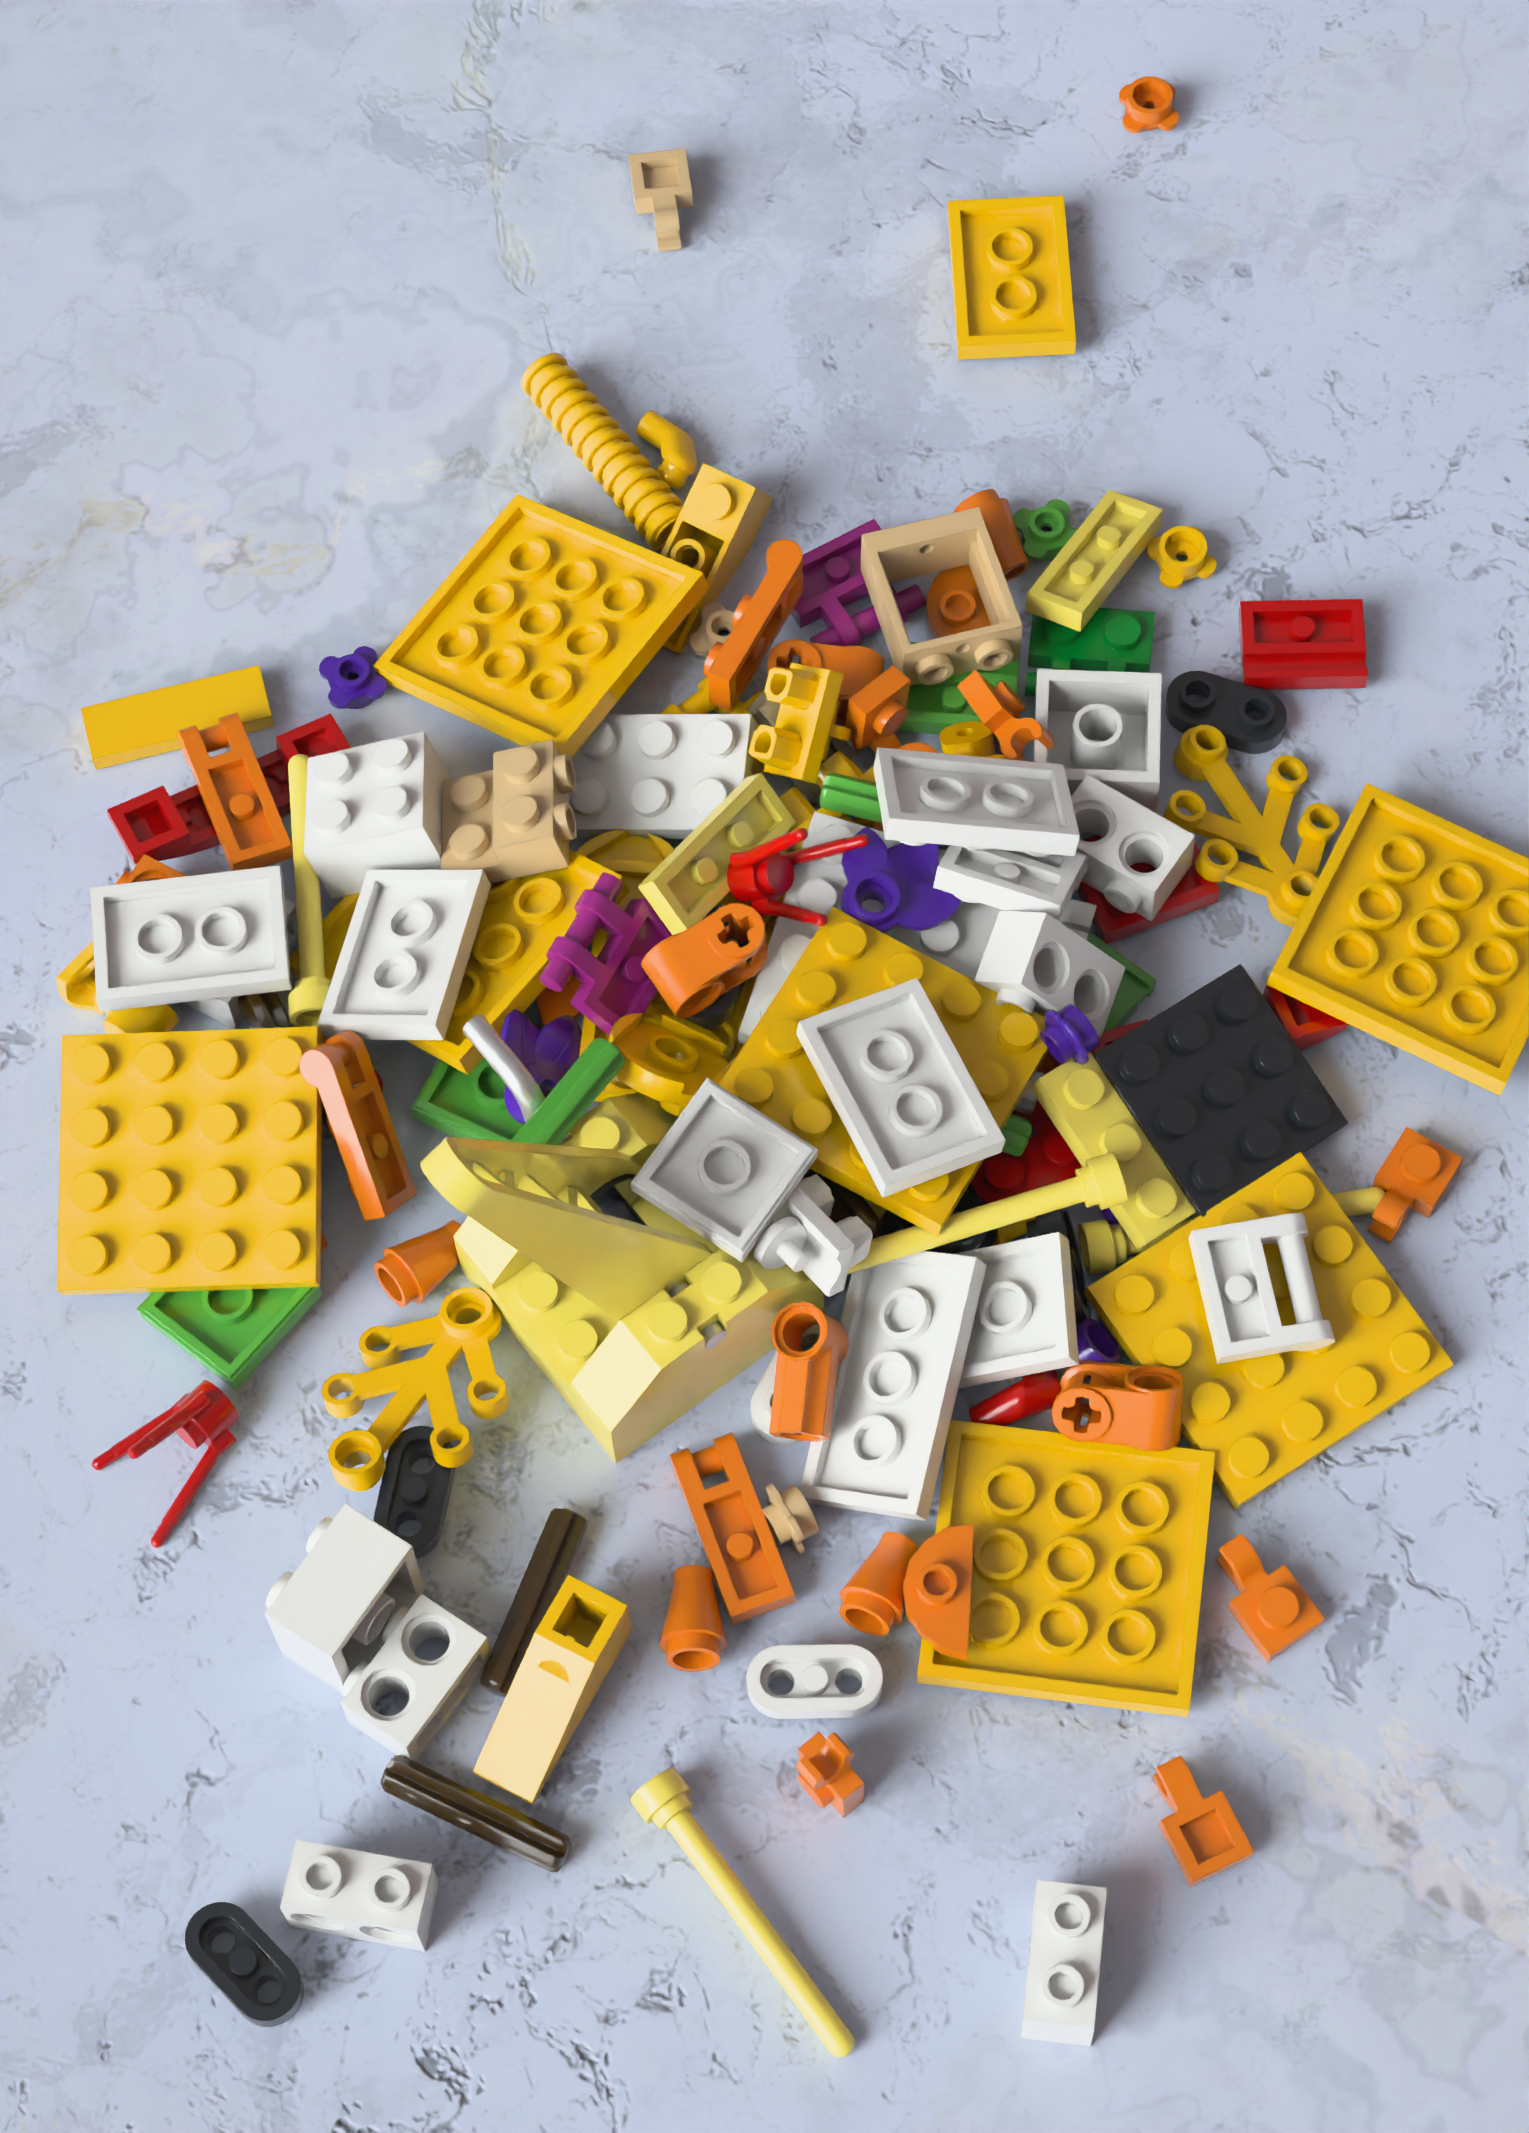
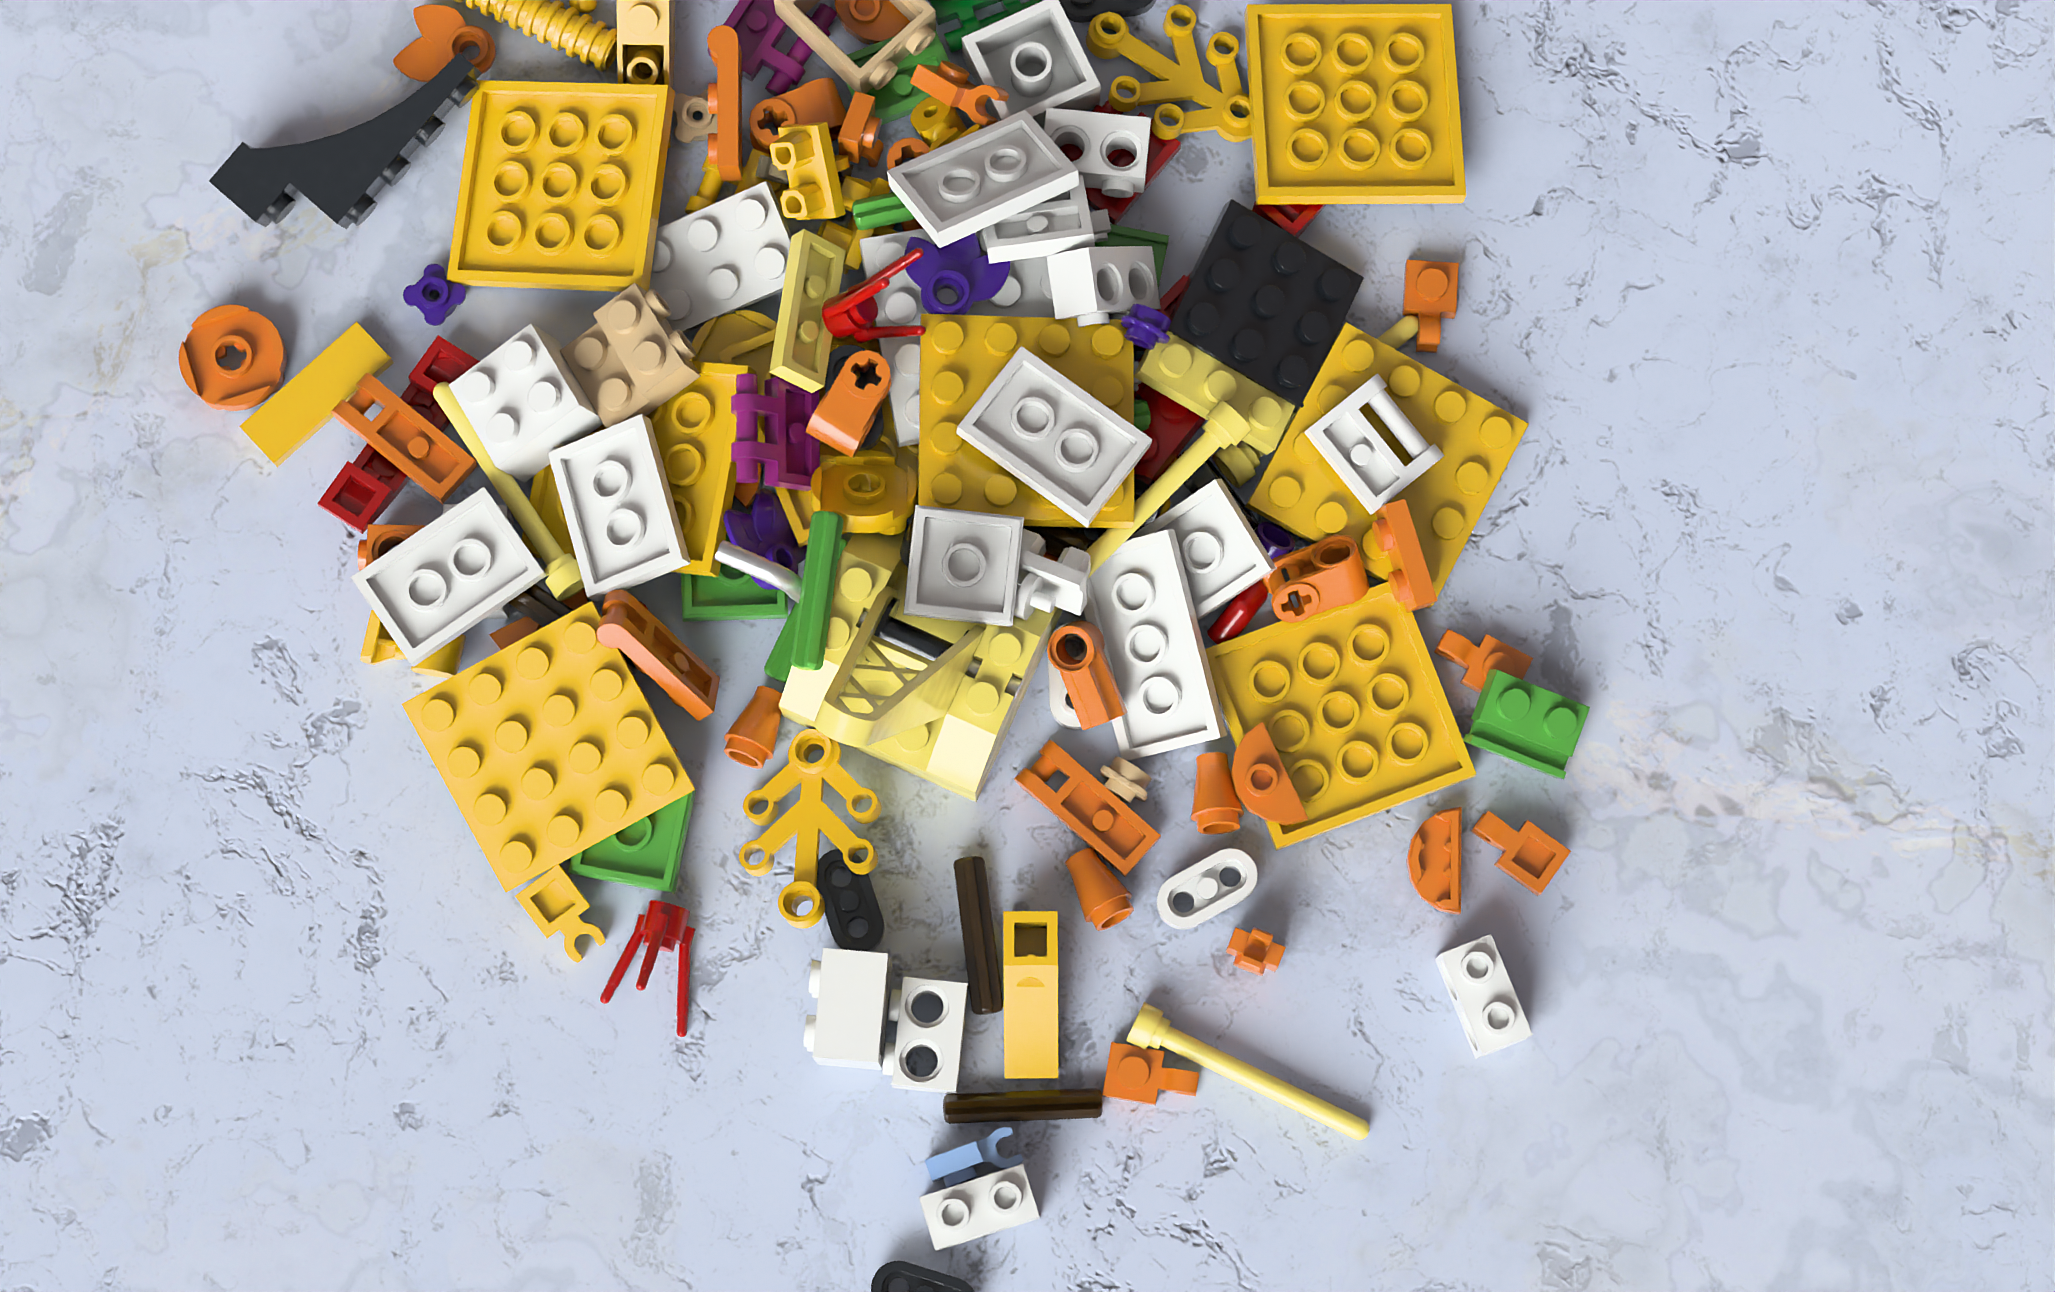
camera: 30 degrees left, 15 degrees up
(104, 1337) = (556, 905): none -> yellow plate
(120, 672) = (206, 345): none -> orange plate
(342, 513) = (346, 168): none -> black arch
(382, 1833) = (958, 1164): none -> light blue plate
(497, 460) = (442, 38): none -> orange plate
(627, 1848) = (1139, 1074): none -> orange plate
(1093, 1784) = (1436, 860): none -> orange plate
(1233, 1395) = (1397, 536): none -> orange plate
(1277, 1684) = (1526, 723): none -> bright green plate

